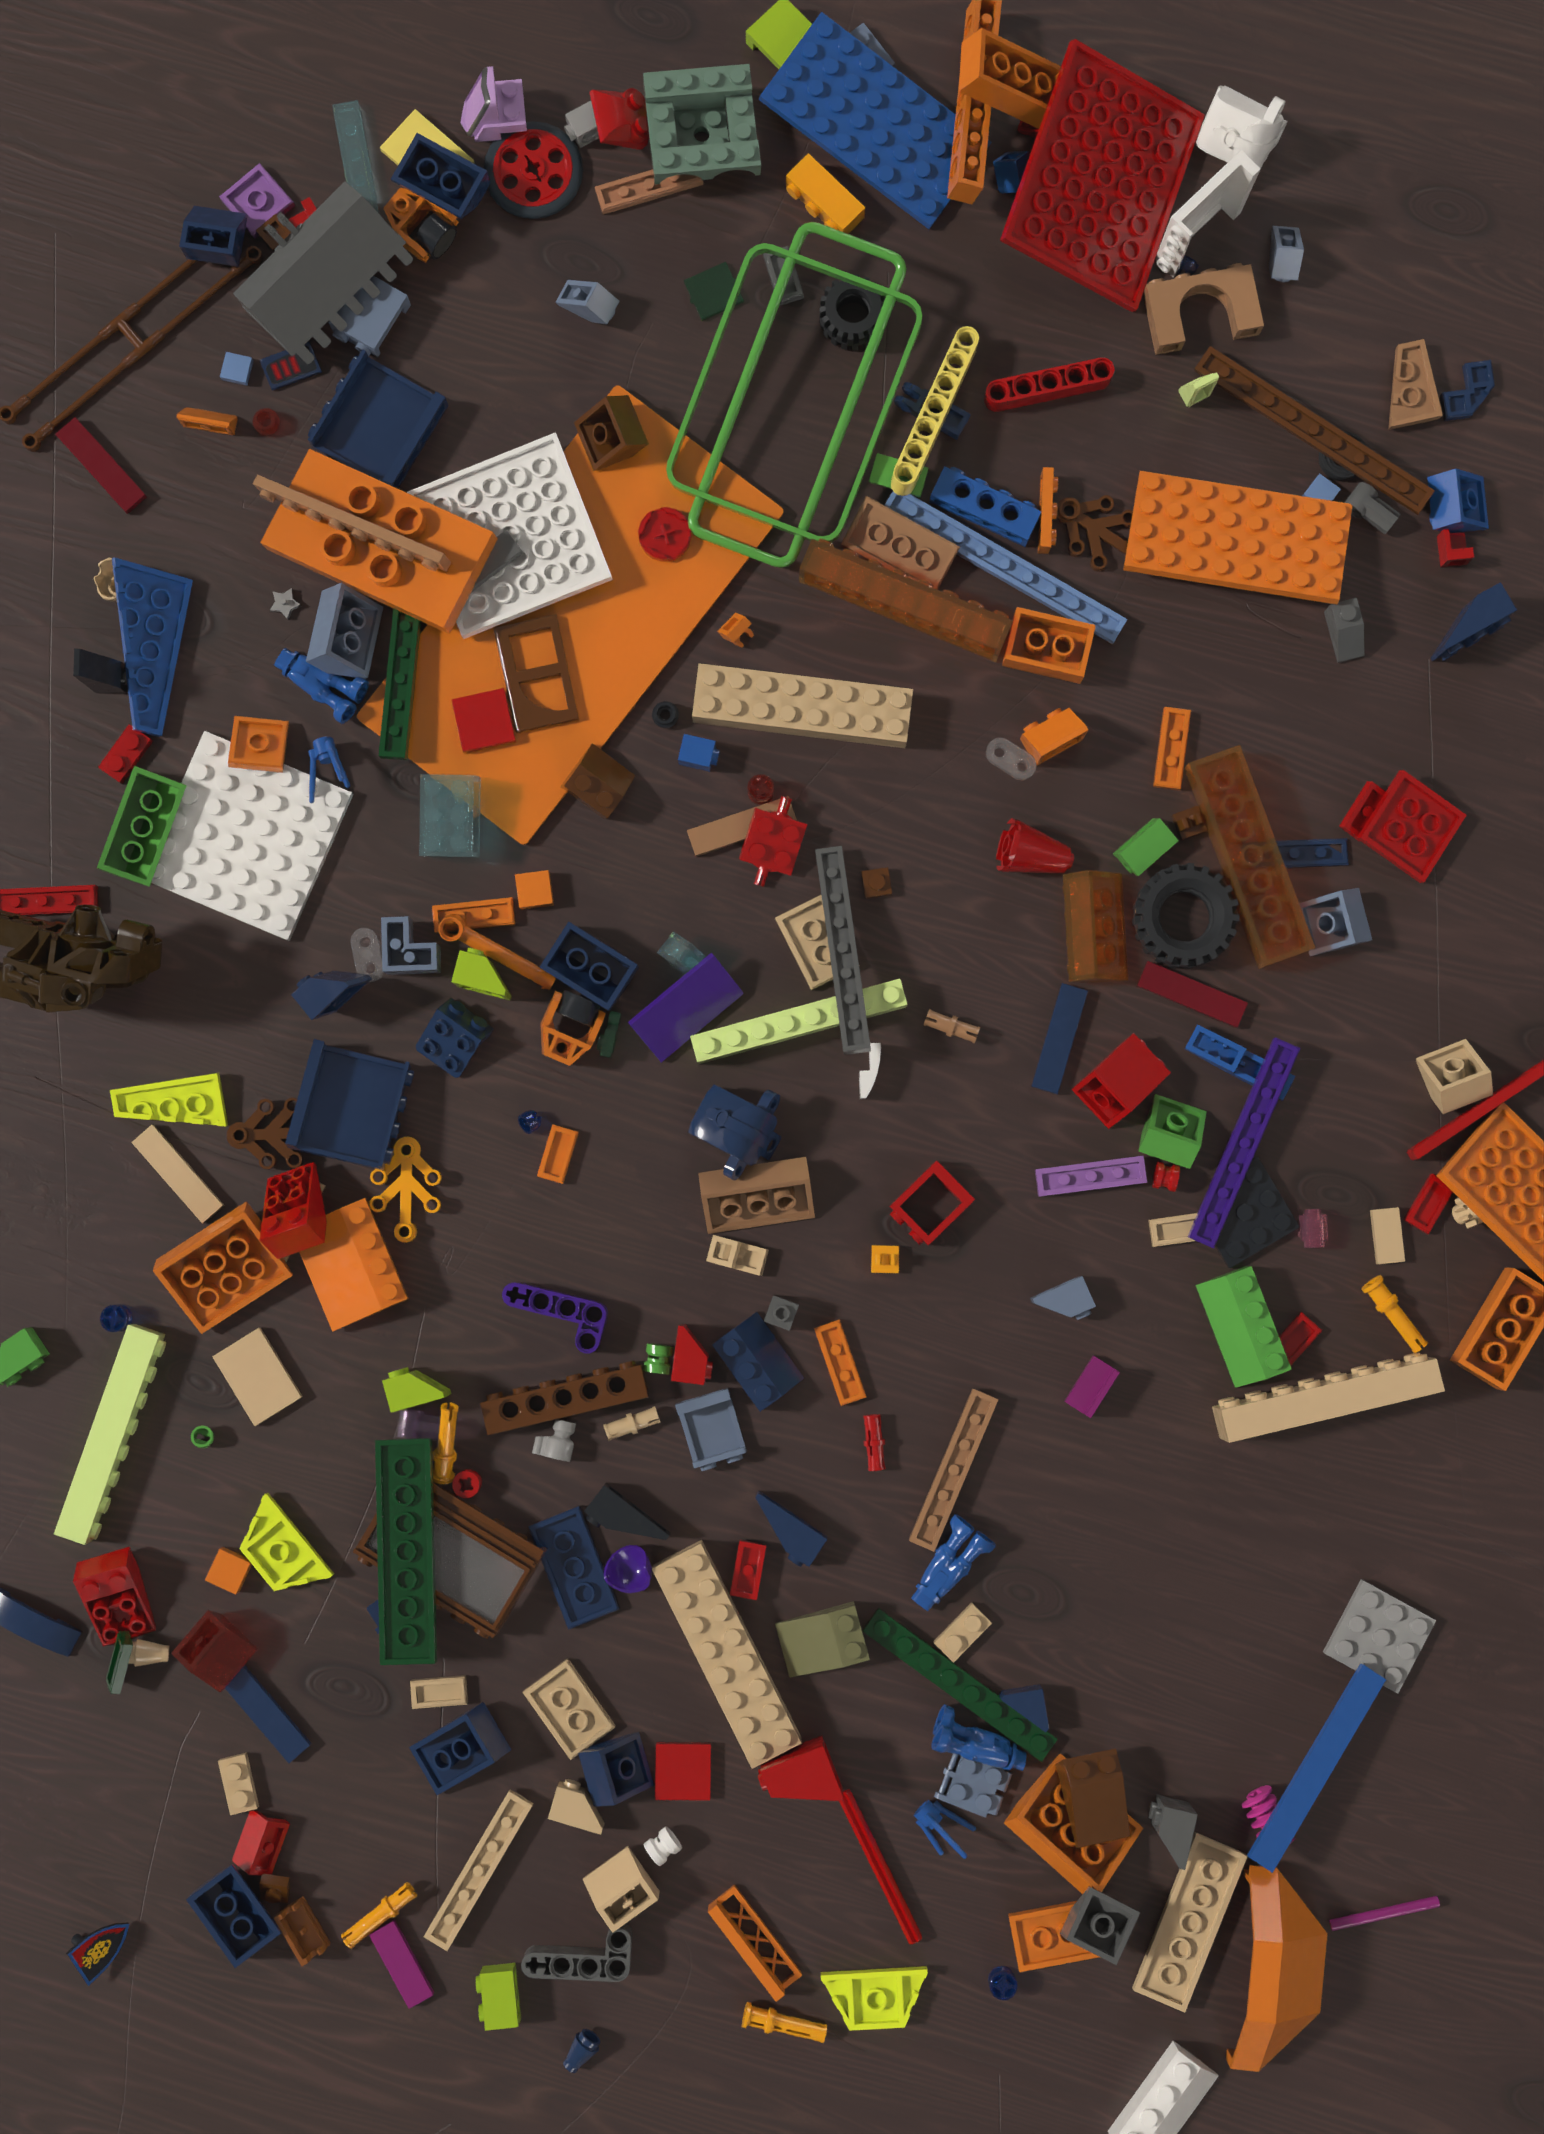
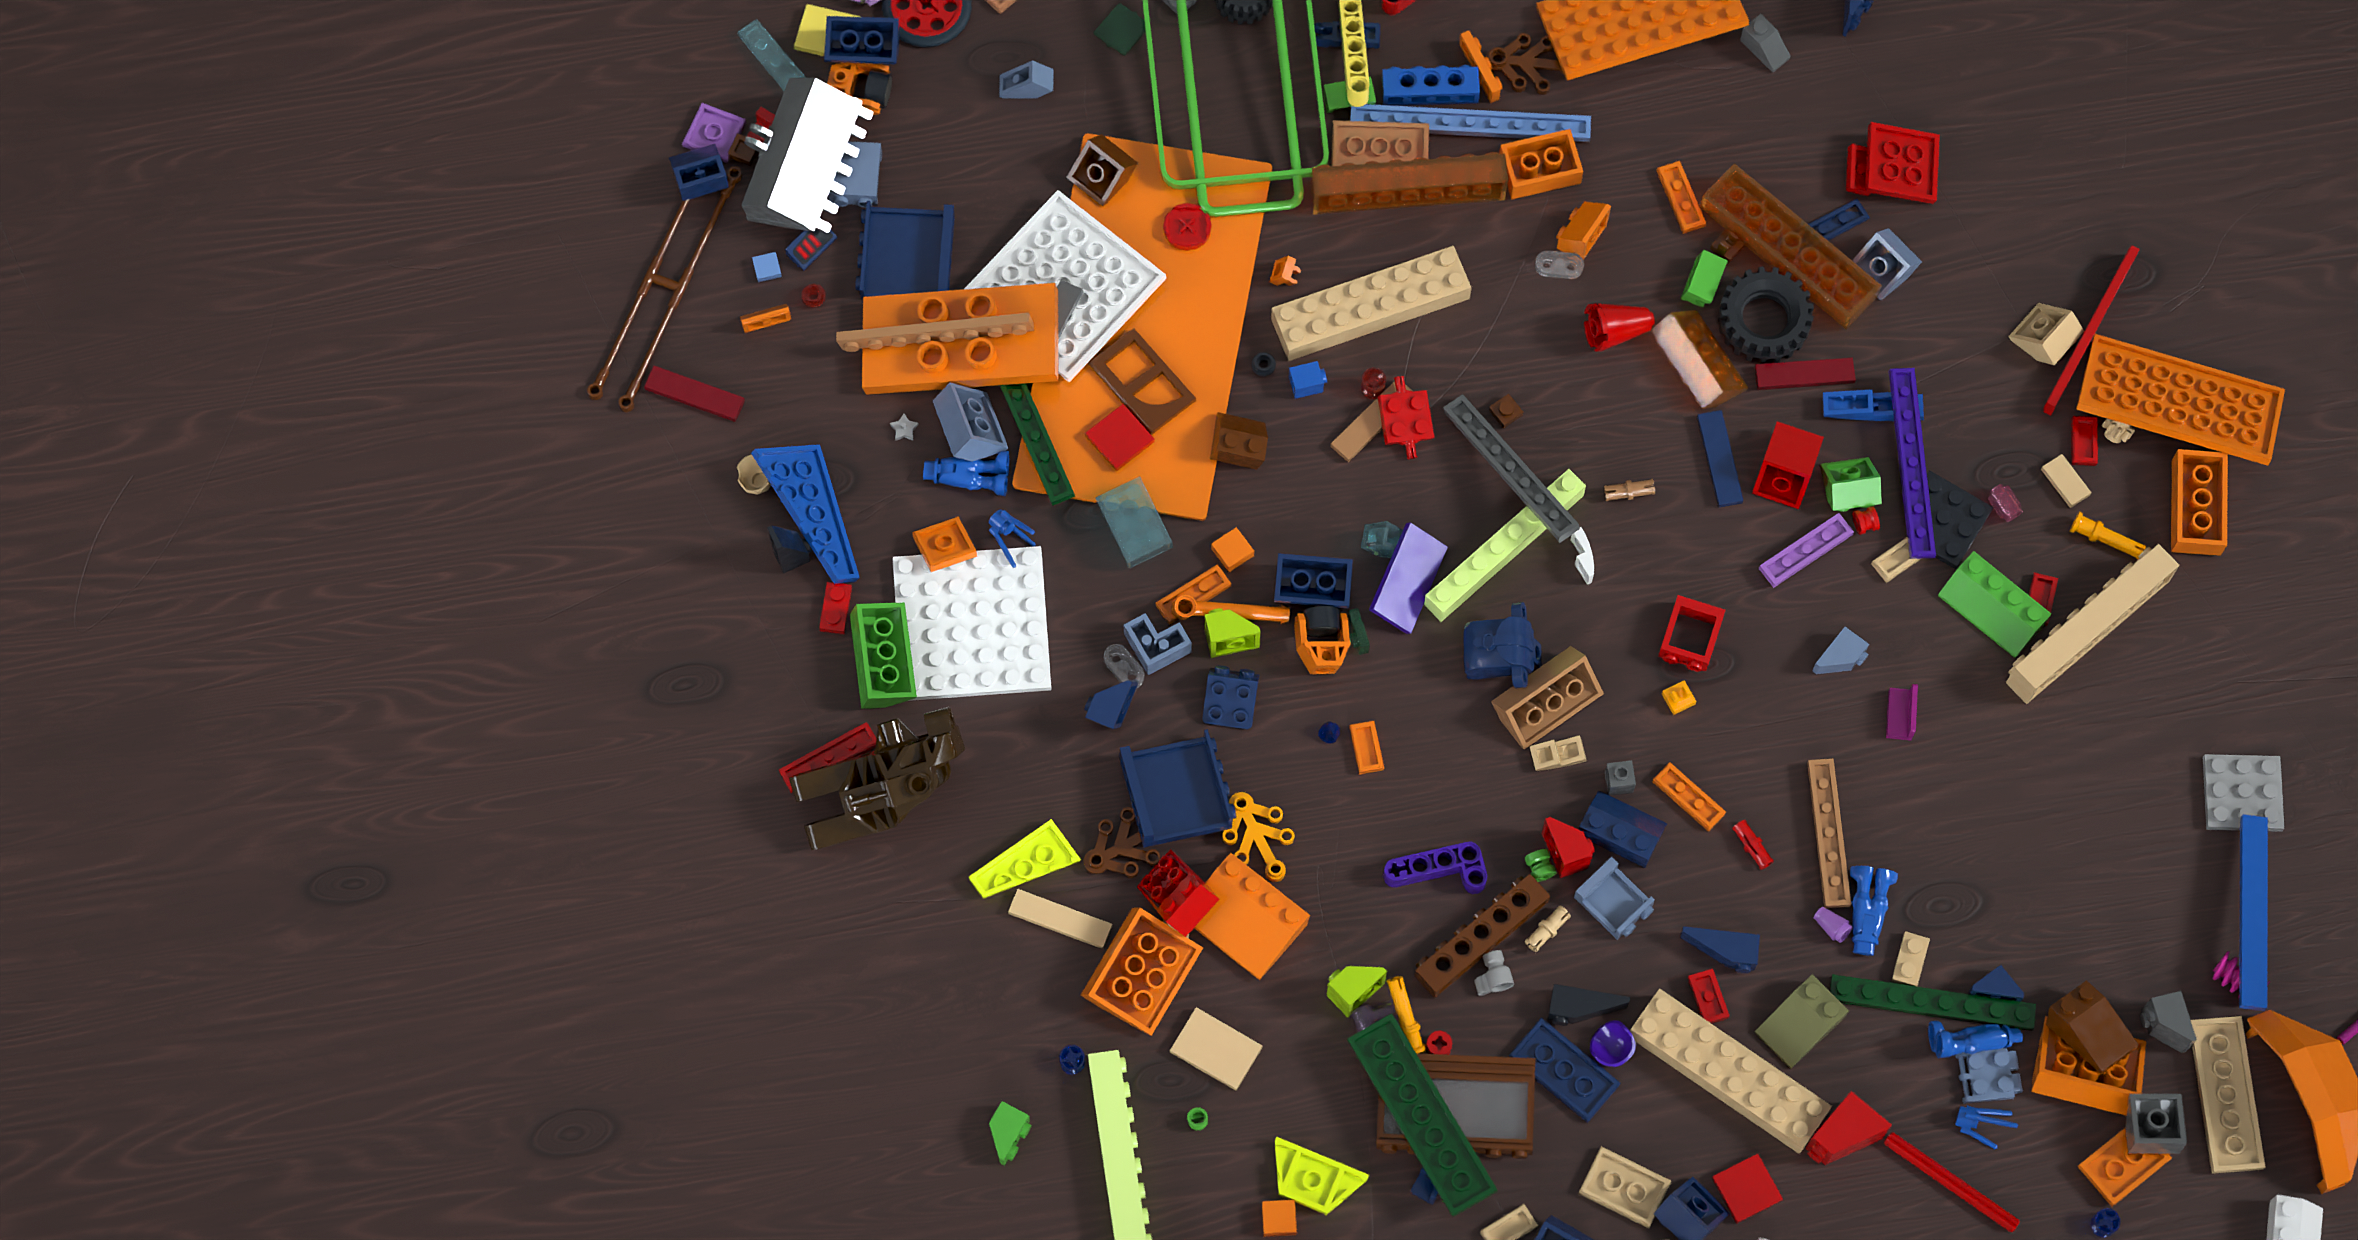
camera: 30 degrees left, 15 degrees down
(808, 941) = (1478, 481): tan tile -> none
(906, 1560) = (1833, 924): none -> medium lavender cone

